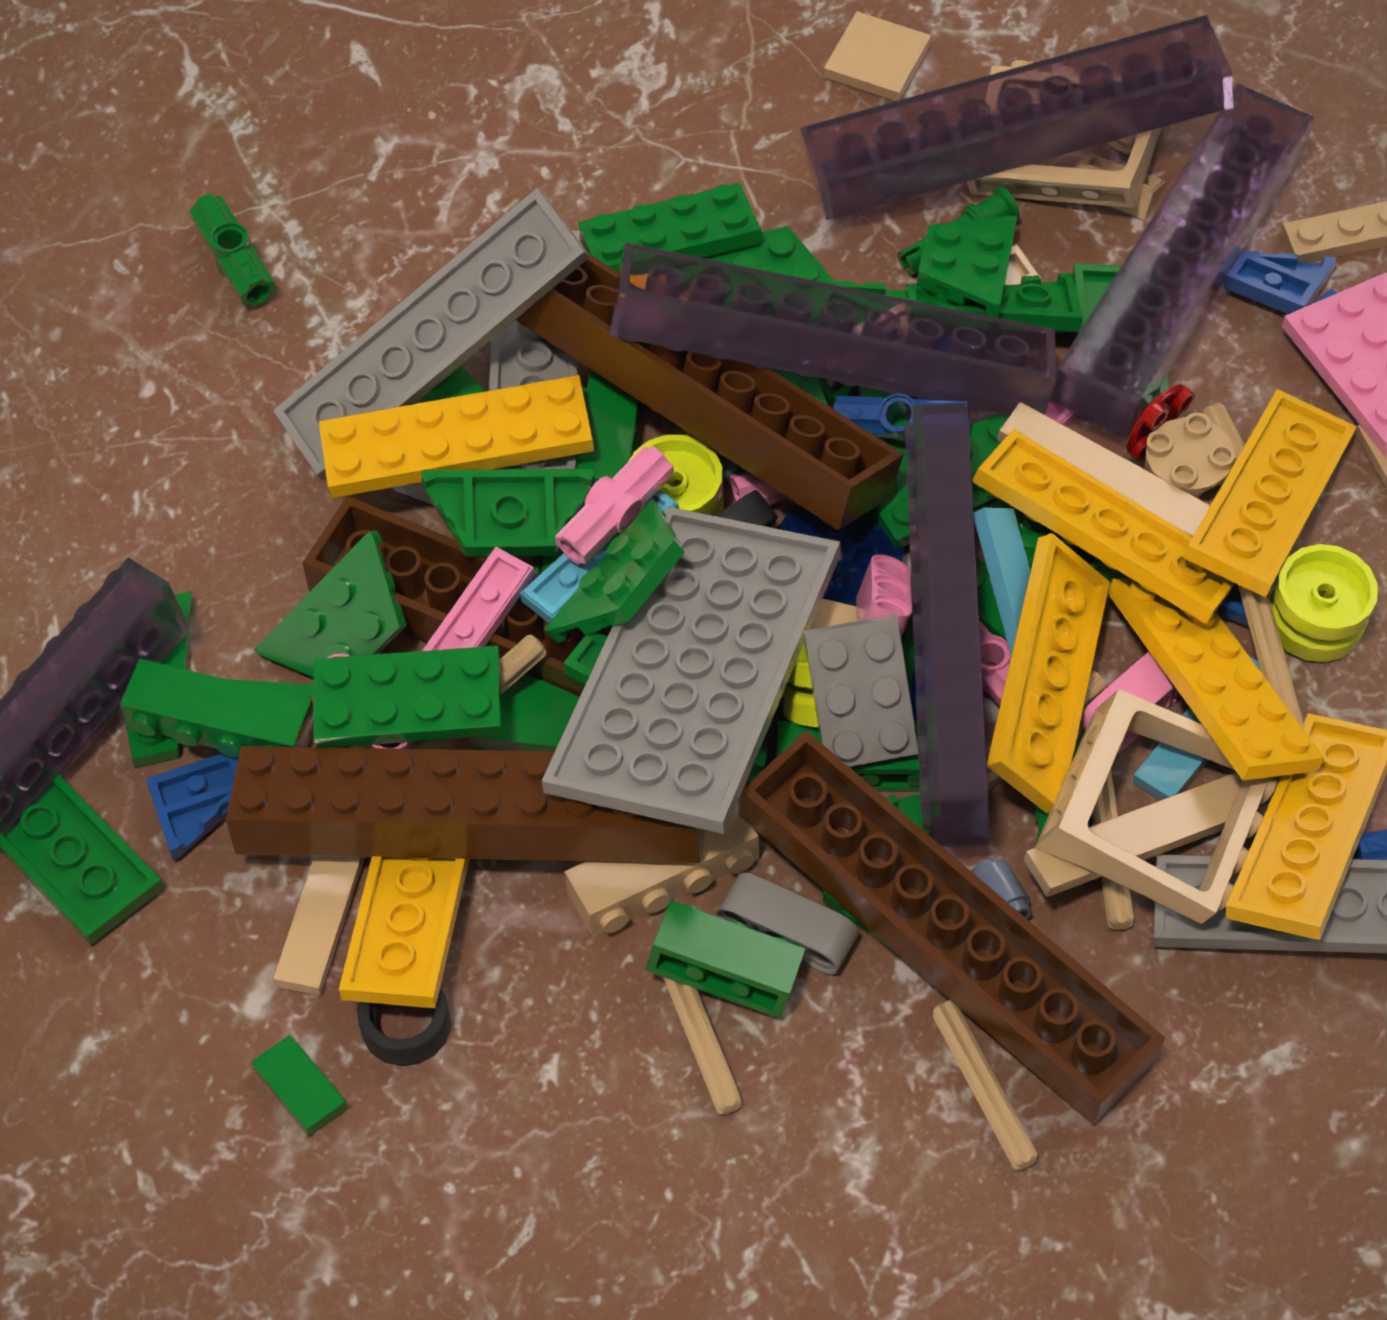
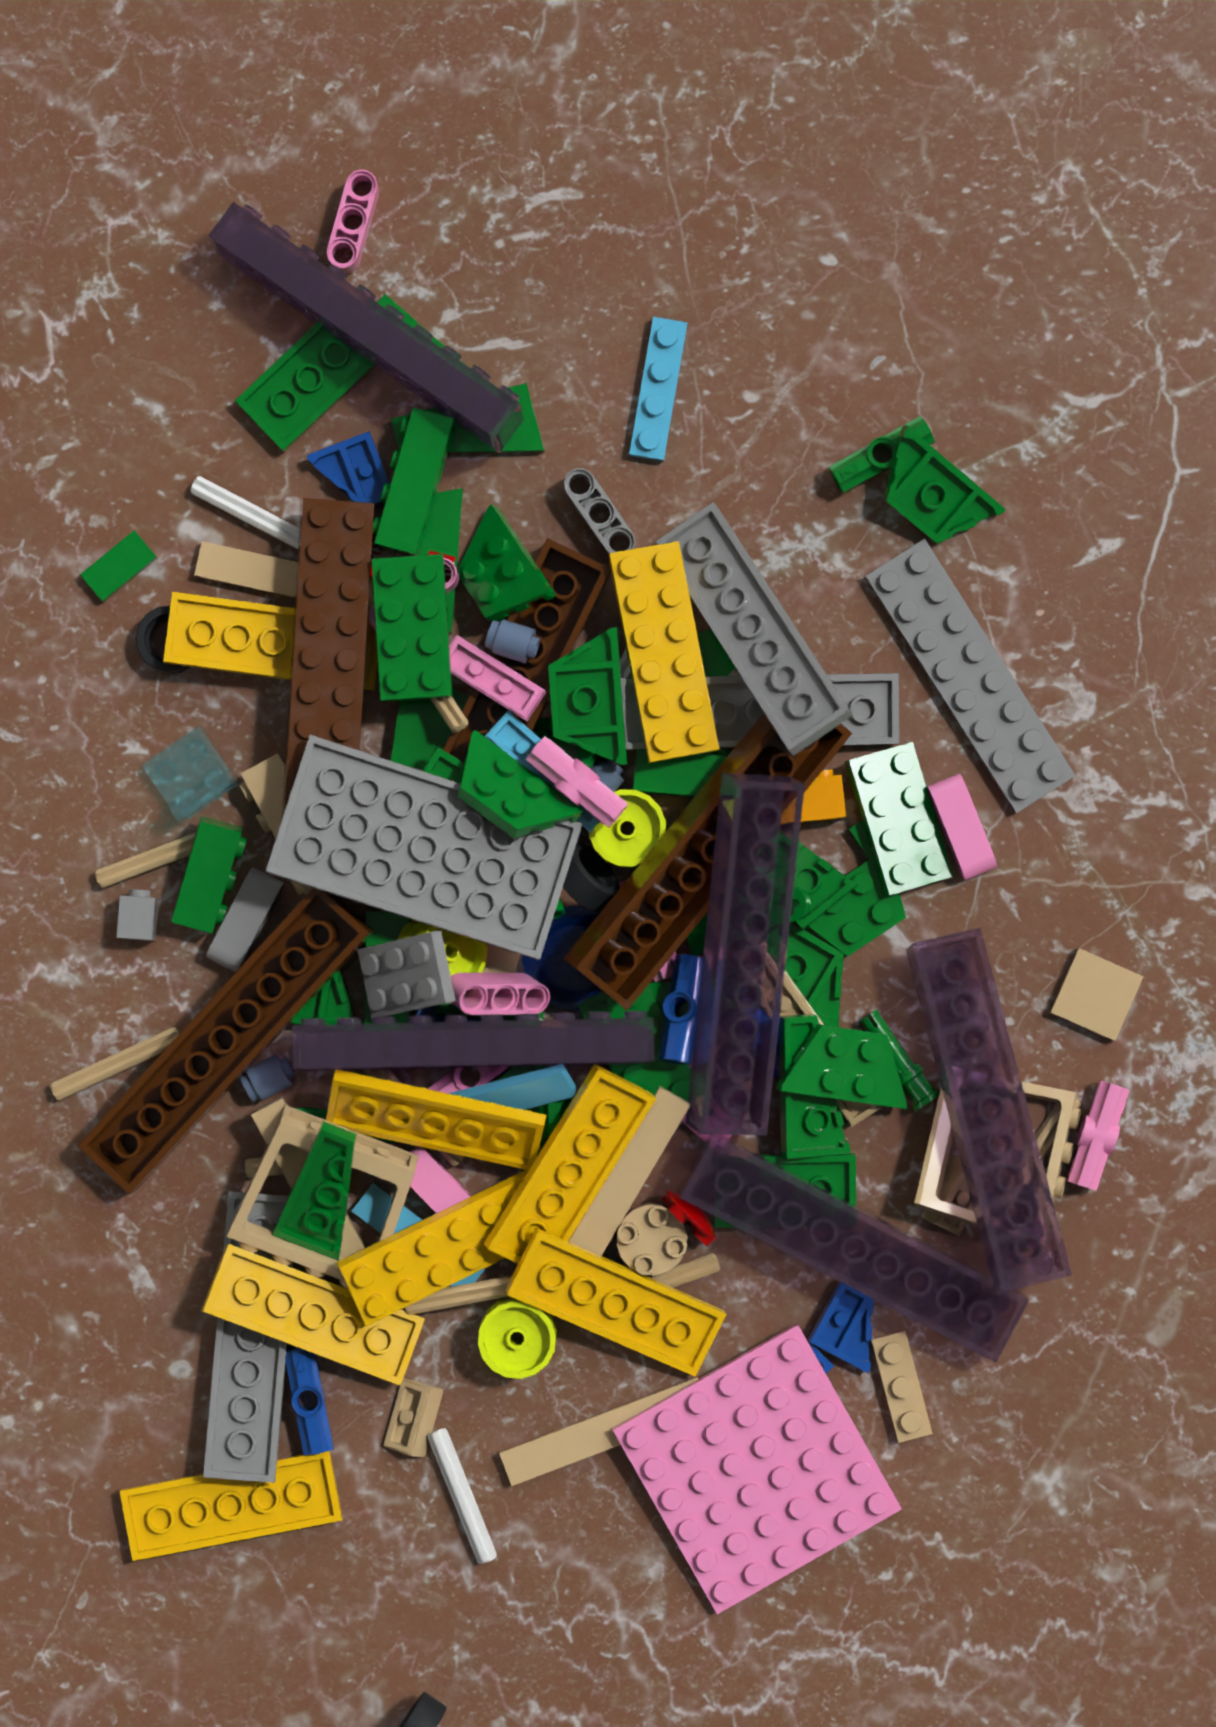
camera: 85 degrees right, 30 degrees up
(128, 478) = (658, 389): none -> medium azure plate
(241, 925) = (245, 511): none -> white axle
(258, 534) = (597, 497): none -> light grey beam
(277, 195) = (934, 491): none -> green wing
(431, 587) = (512, 640): none -> sand blue brick
(499, 173) = (969, 676): none -> light grey plate
(593, 987) = (190, 774): none -> clear light blue bracket
(681, 170) = (962, 827): none -> bright pink beam
(781, 1051) = (138, 916): none -> light grey brick
(1025, 43) = (1098, 1135): none -> bright pink piece
(1160, 802) = (319, 1197): none -> green wing

